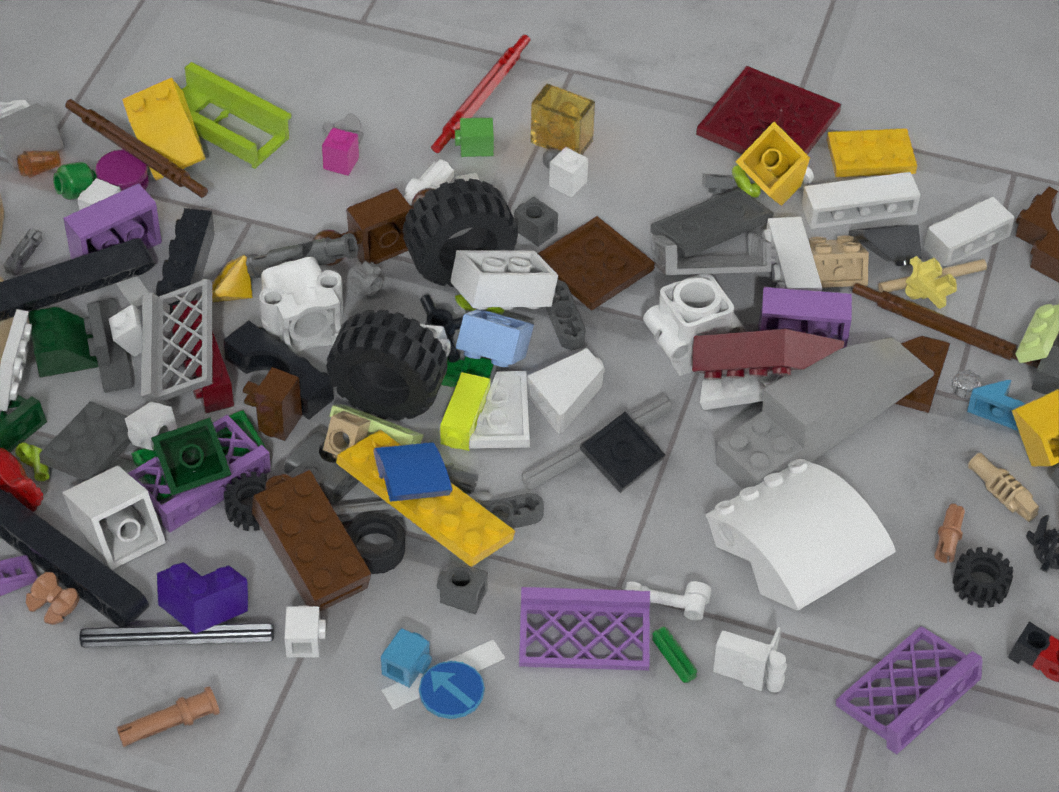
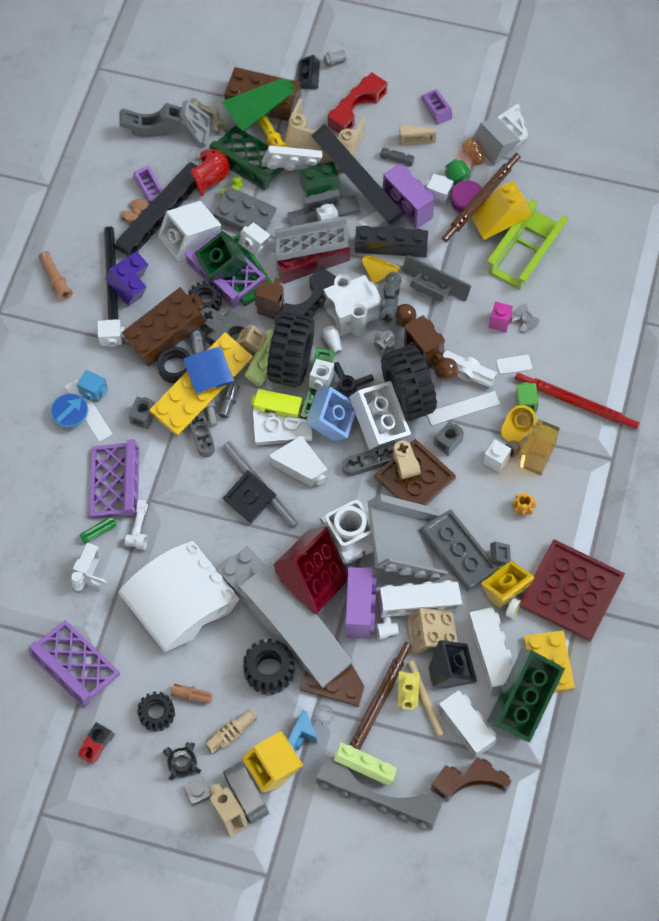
camera: 90 degrees right, 15 degrees up
(265, 220) = (434, 281): none -> dark grey bracket
(413, 153) = (514, 364): none -> white sticker
(518, 143) = (518, 423): none -> yellow piece
(579, 257) = (406, 461): none -> tan piece
(643, 153) = (524, 499): none -> light orange gear
(900, 451) = (264, 651): none -> black tyre
(934, 157) = (526, 695): none -> dark green brick

